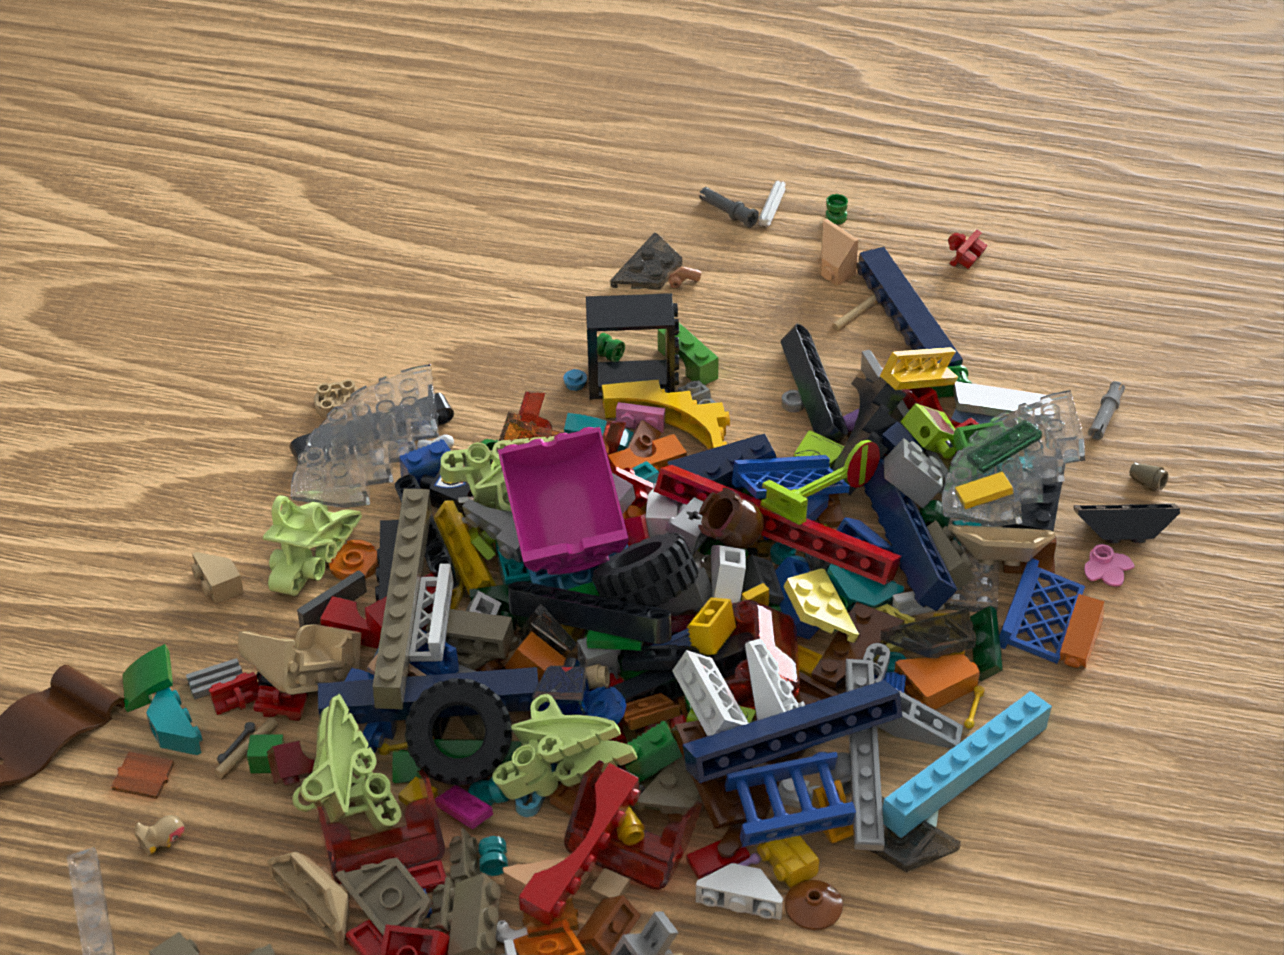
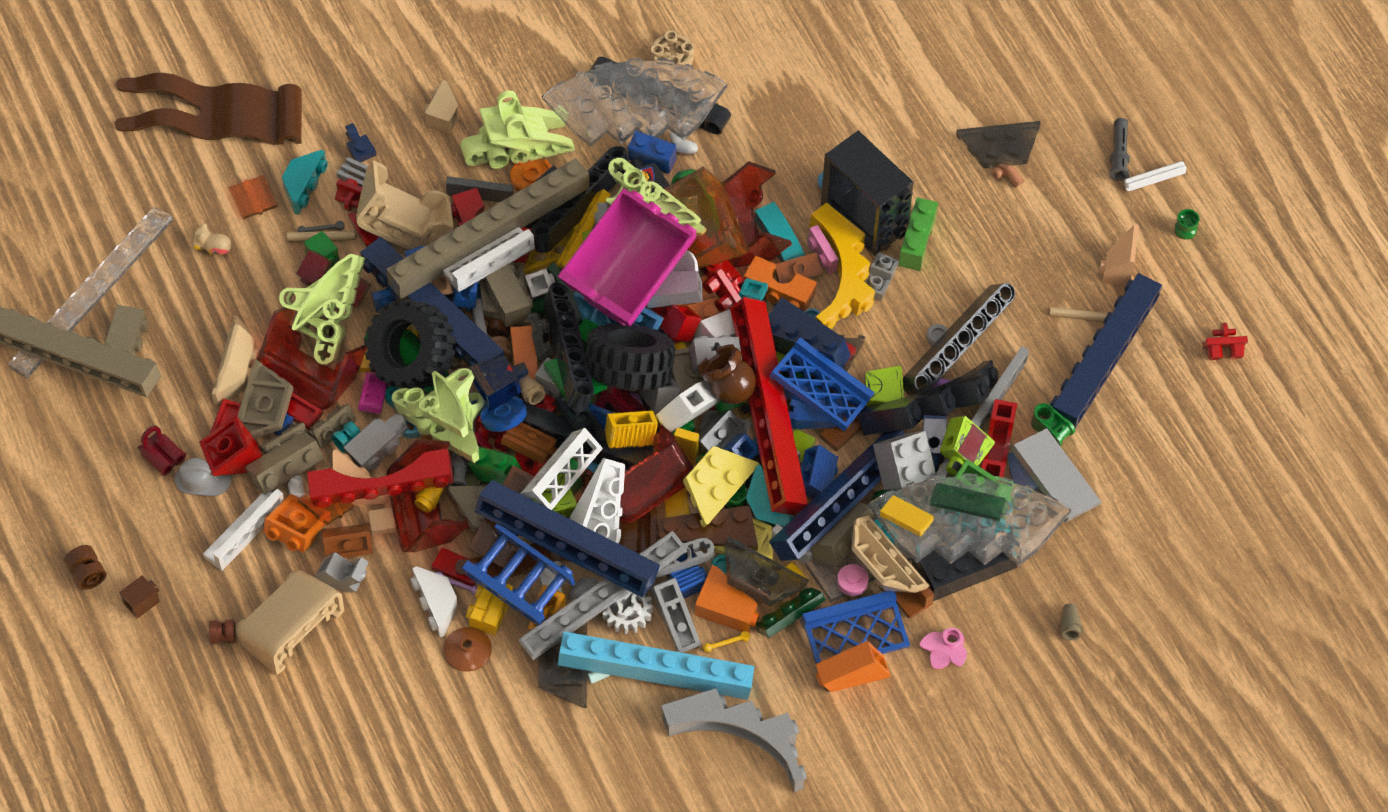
camera: 50 degrees right, 15 degrees up
(147, 676) = (322, 138): green slope -> none
(186, 660) = (359, 147): none -> dark blue plate
(524, 831) = (376, 441): none -> light grey hinge
(856, 472) = (870, 420): lime piece -> none
(889, 747) = (632, 616): none -> white gear
(917, 374) = (1011, 398): yellow fence -> none
(994, 579) = (852, 580): none -> bright pink wheel
(1107, 728) = (710, 713): none -> light grey arch
(1109, 404) = (1123, 551): light grey pin -> none
(1128, 520) = (997, 629): black wedge -> none

